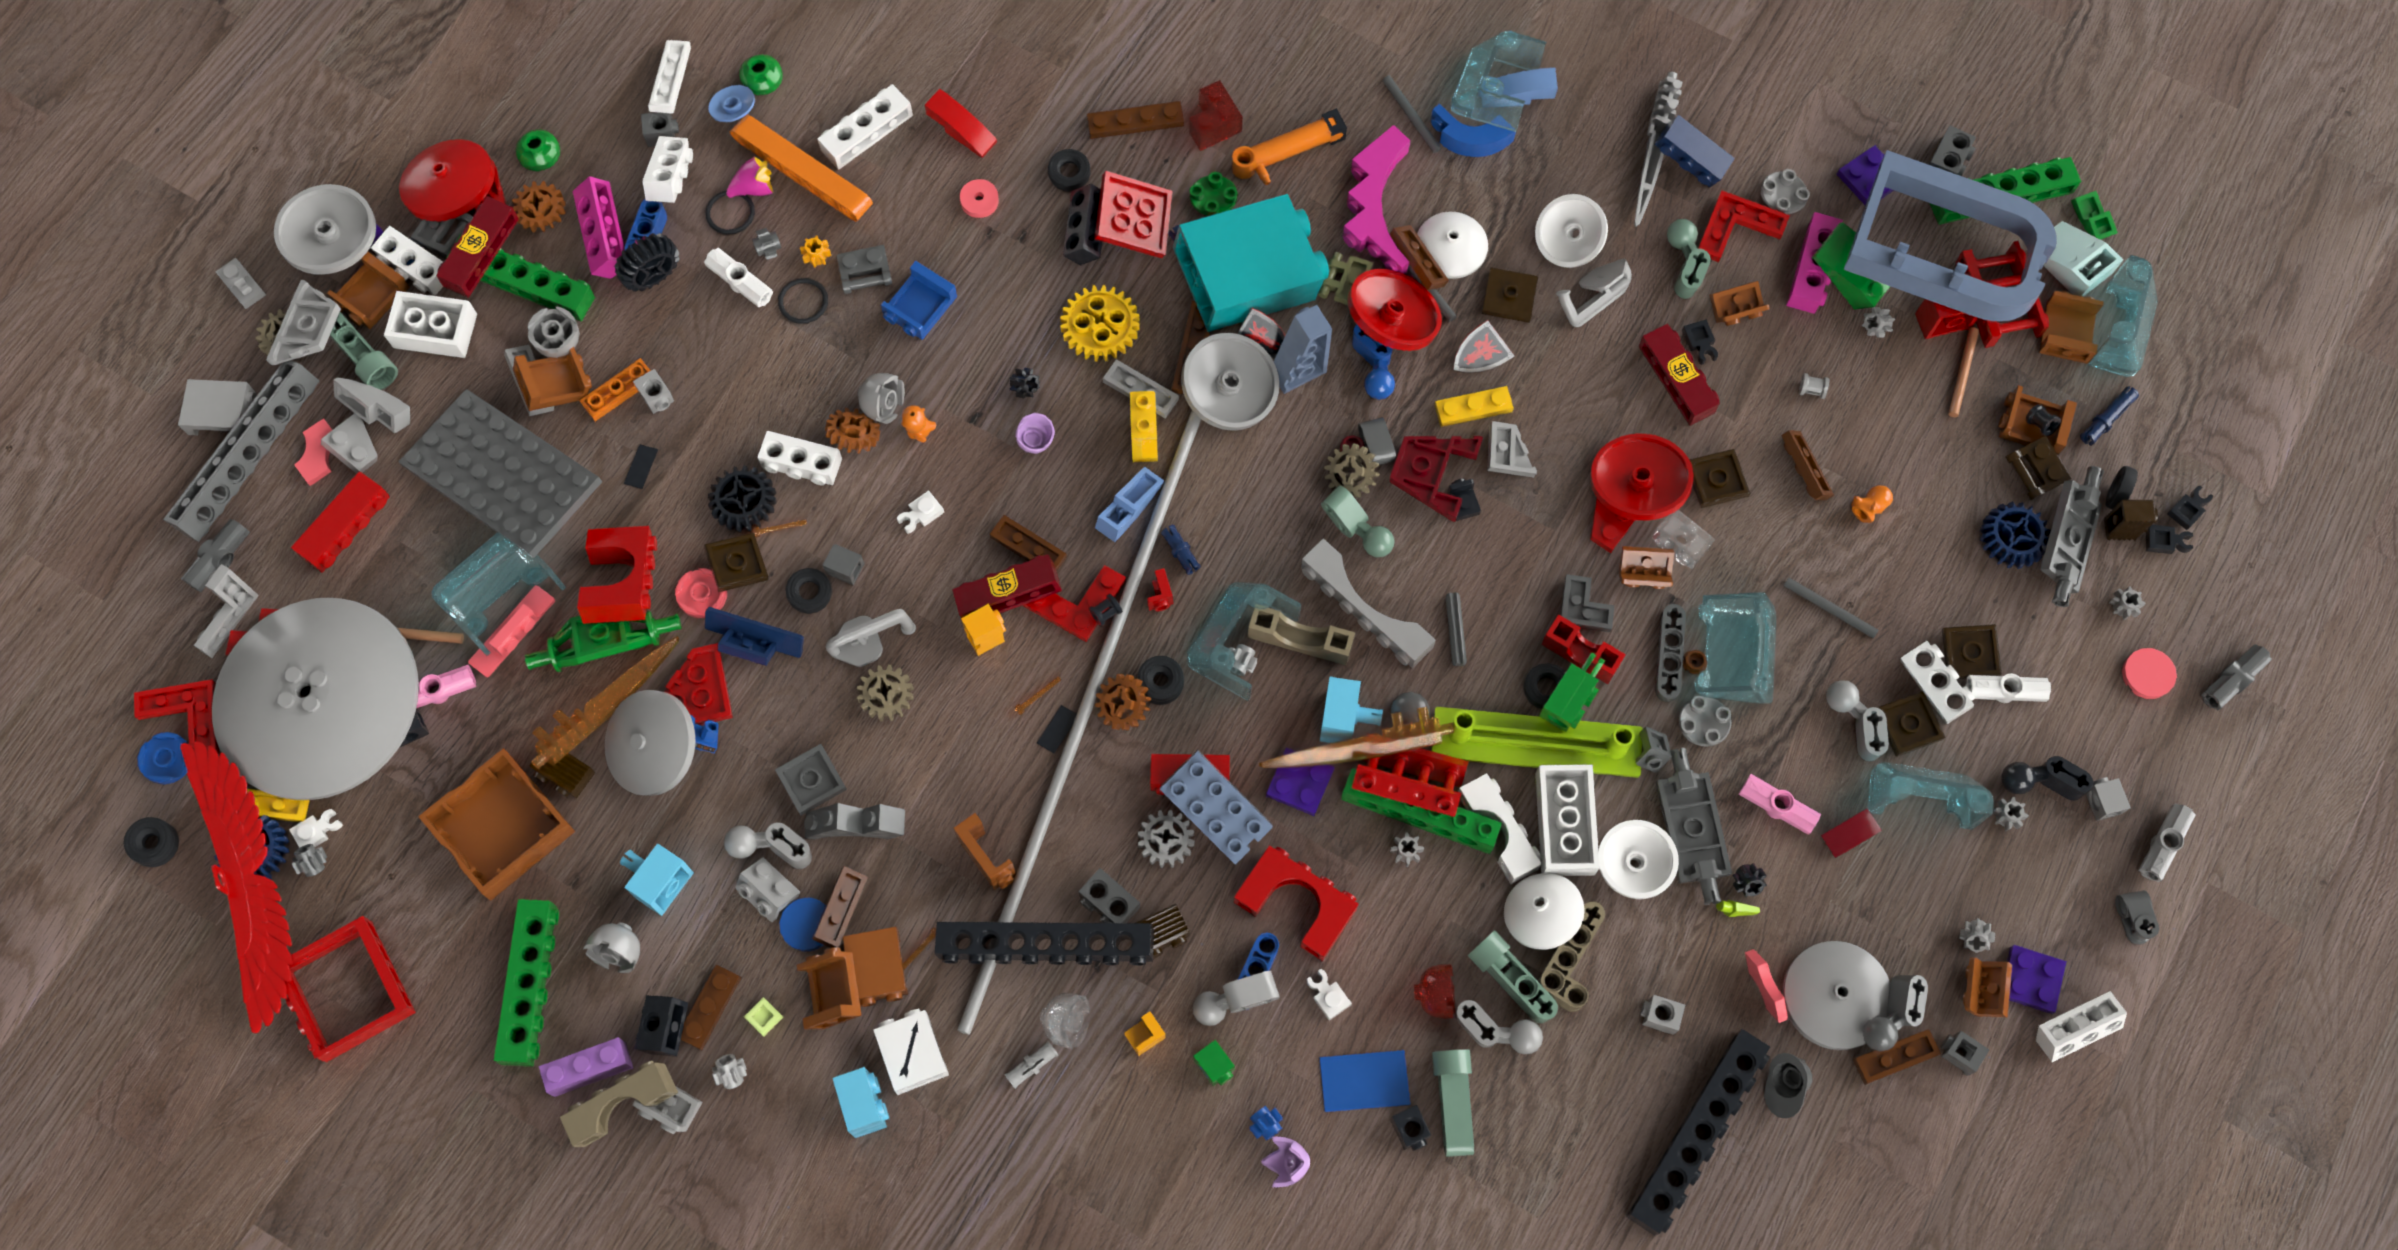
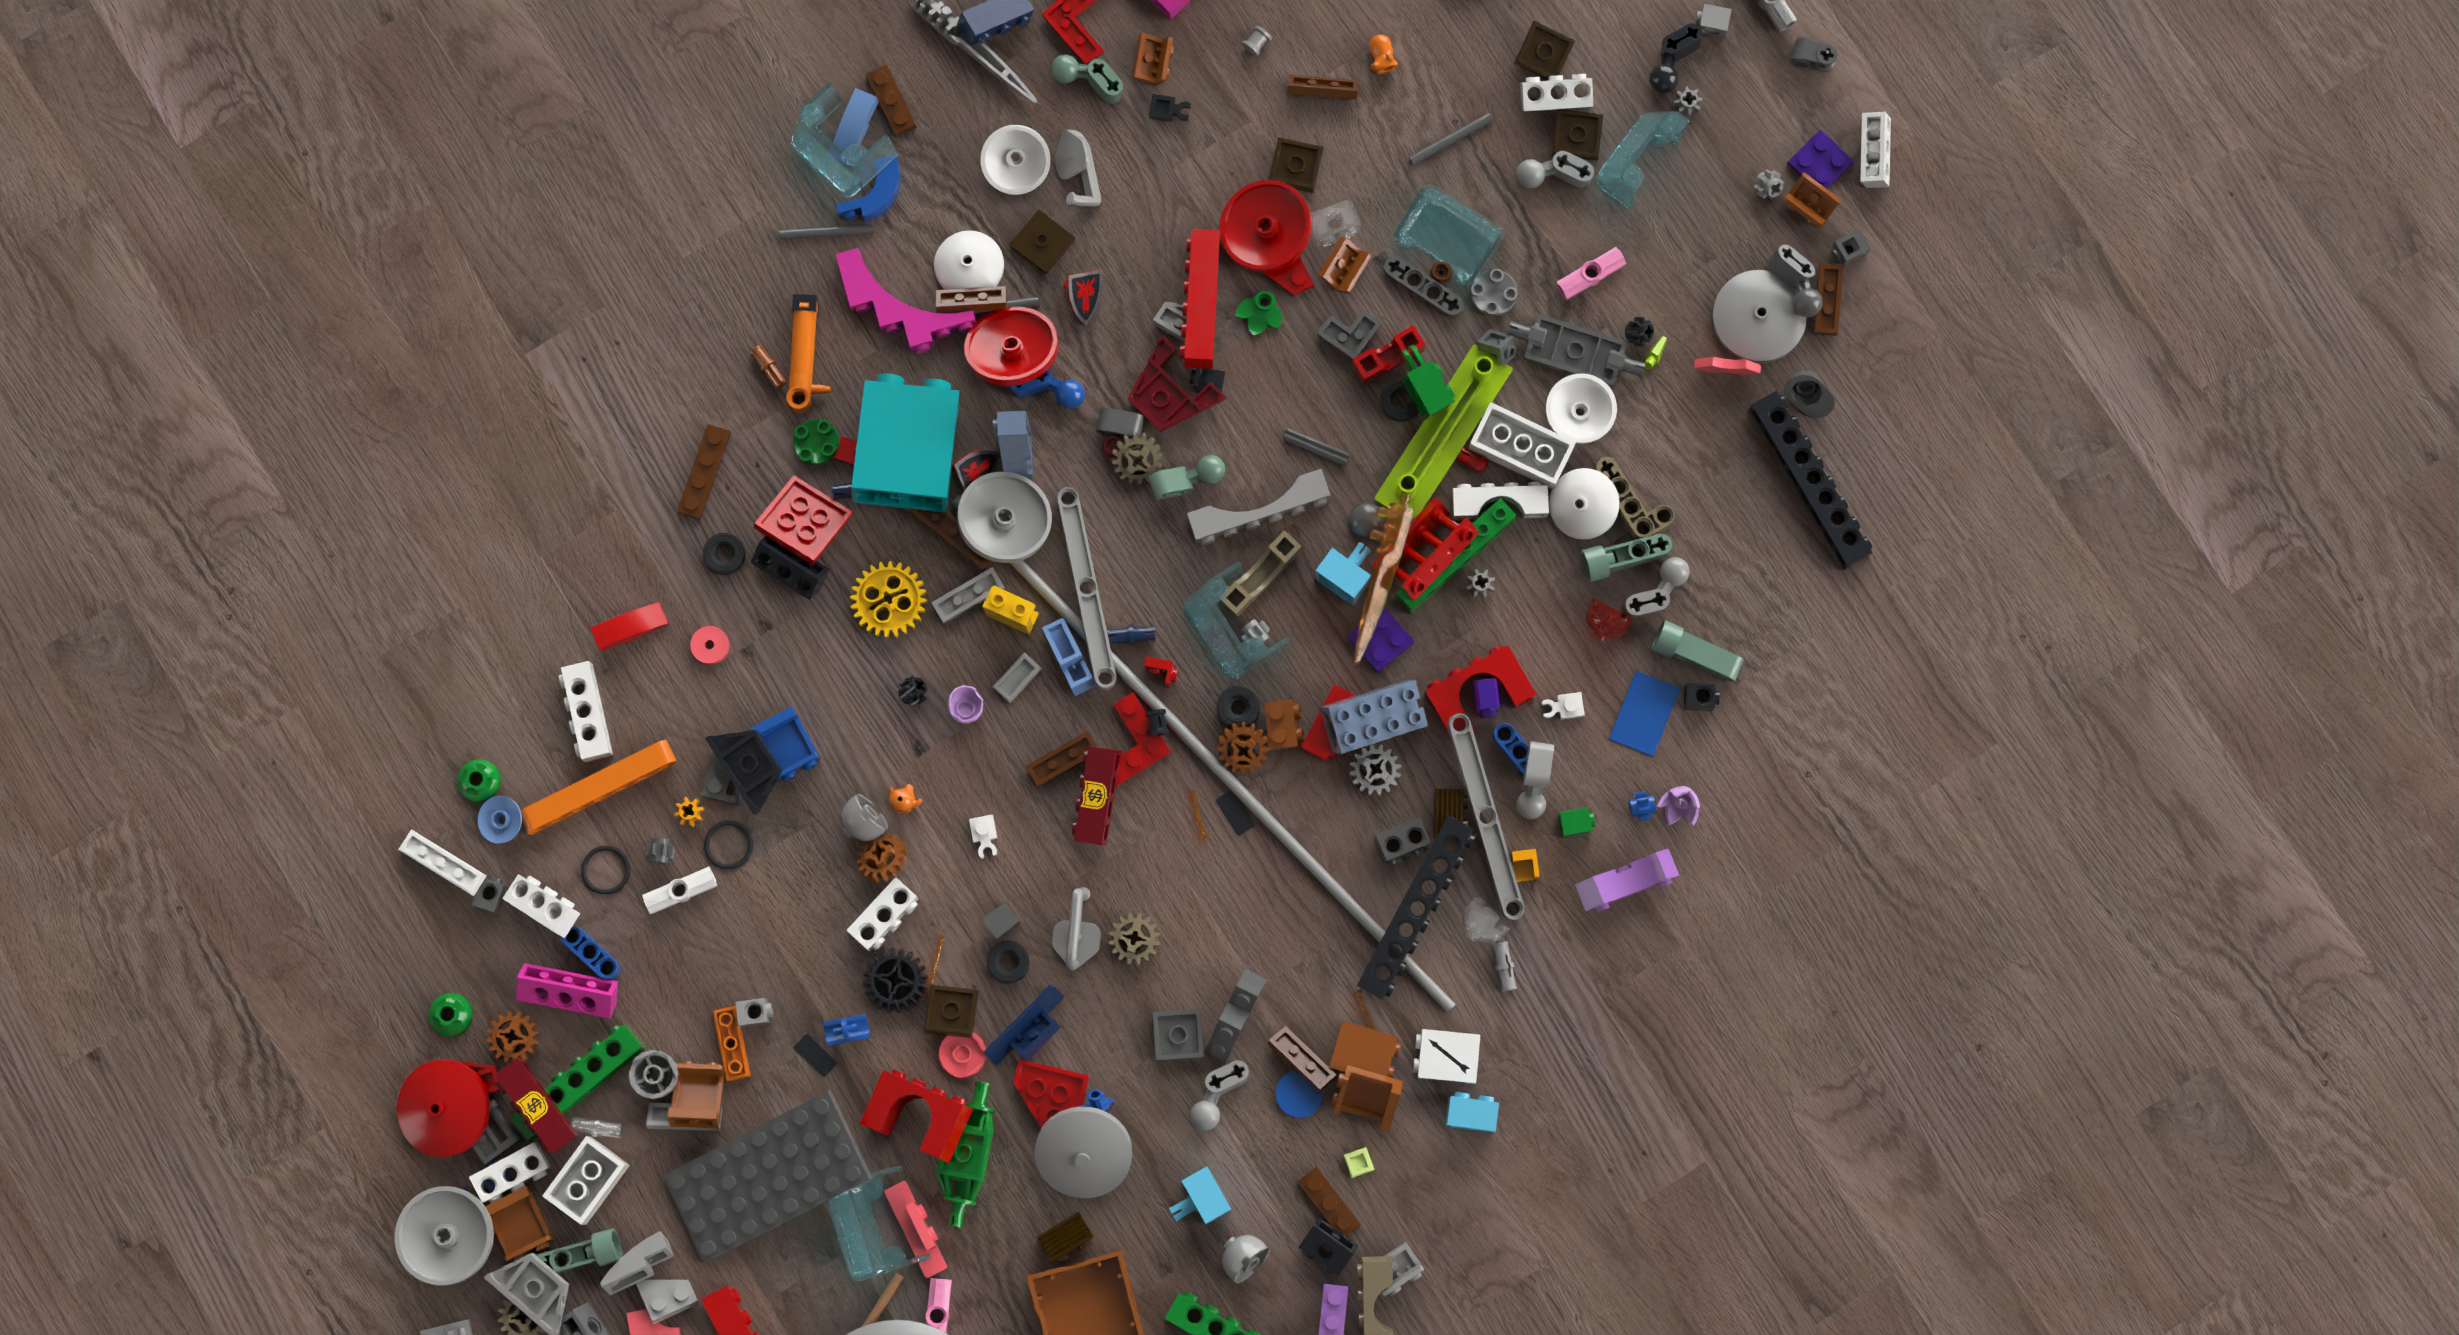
camera: 60 degrees left, 10 degrees up
(486, 313) = (597, 1127): none -> clear pin
(596, 711) = (1038, 1199): clear orange piece -> none
(647, 262) = (628, 963): black gear -> none
(674, 478) = (846, 1030): none -> blue hips
(729, 1071) = (1392, 1208): light grey gear -> none
(751, 180) = (589, 836): dark pink hat -> none
(766, 889) = (1254, 1112): light grey bracket -> none
(880, 275) = (748, 765): none -> black wing
(967, 834) = (1317, 927): dark orange panel -> none
(984, 629) = (1123, 830): light orange brick -> none
(1085, 469) = (1017, 678): none -> light grey tile
(1159, 982) = (1490, 833): none -> light grey beam
(1166, 729) = (1283, 724): none -> dark orange bracket
(1178, 1144) = (1620, 883): none -> medium lavender brick
(1188, 496) = (1089, 604): none -> light grey beam
(1219, 117) = (745, 397): clear red brick -> none
(1260, 124) = (768, 366): none -> dark orange axle
(1293, 908) = (1486, 698): none -> dark purple brick
(1350, 272) = (954, 360): olive plate -> none
(1473, 406) = (1128, 327): yellow plate -> none
(1526, 783) = (1472, 460): none -> red pin
(1536, 452) = (1202, 299): none -> red brick
(1553, 517) = (1258, 315): none -> green plate
(1563, 109) = (891, 100): none -> reddish brown plate
(1674, 1014) = (1713, 448): light grey brick -> none
(1679, 374) = (1189, 144): dark red brick -> none
(1851, 833) = (1641, 231): dark red slope -> none
(2022, 688) = (1595, 31): white piece -> none

